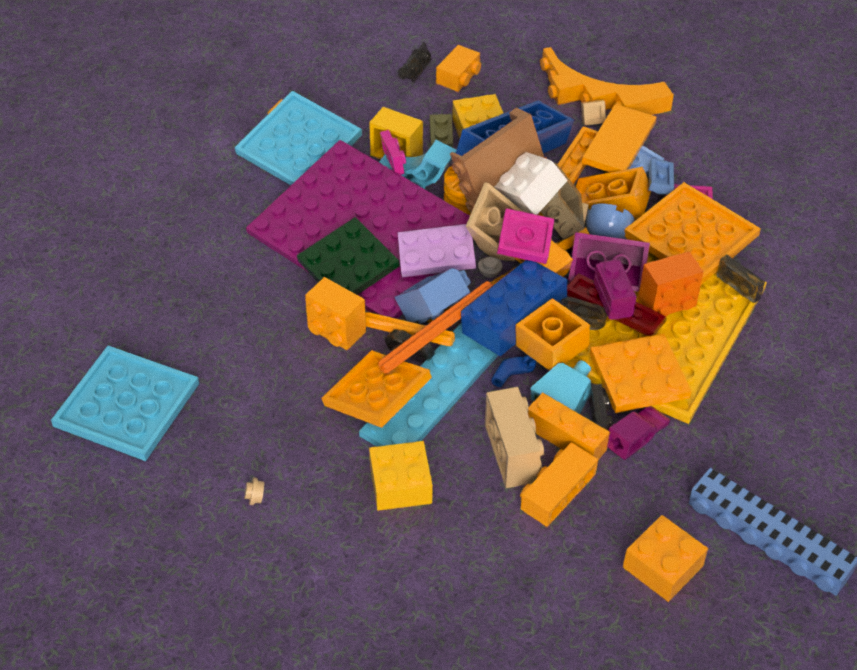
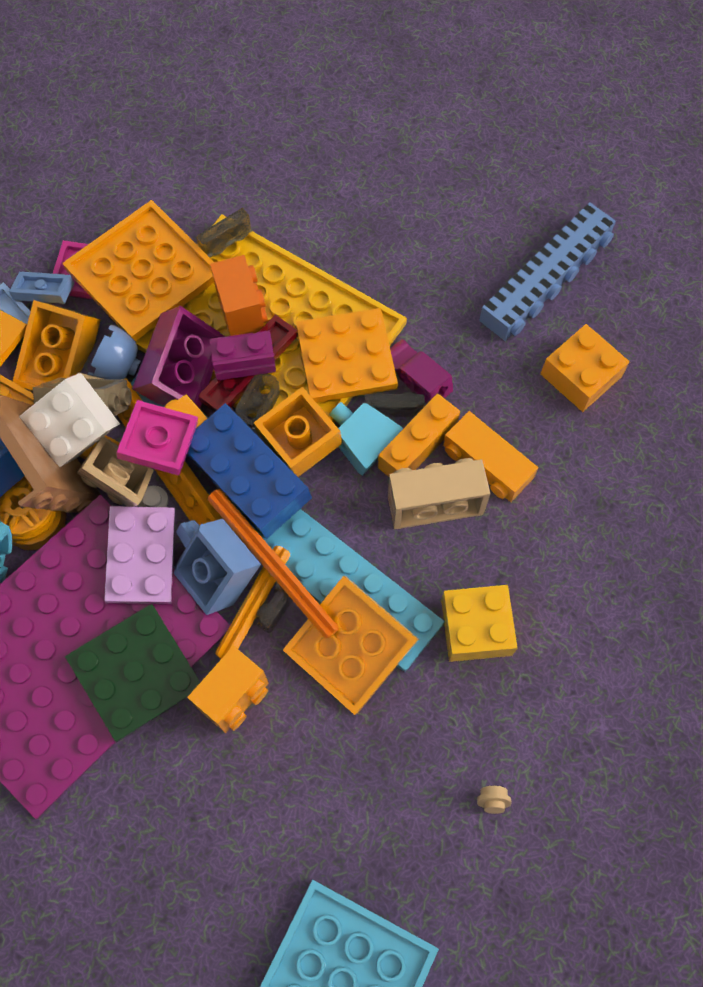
camera: 85 degrees left, 20 degrees up
(512, 367) = (321, 496): blue arm -> none

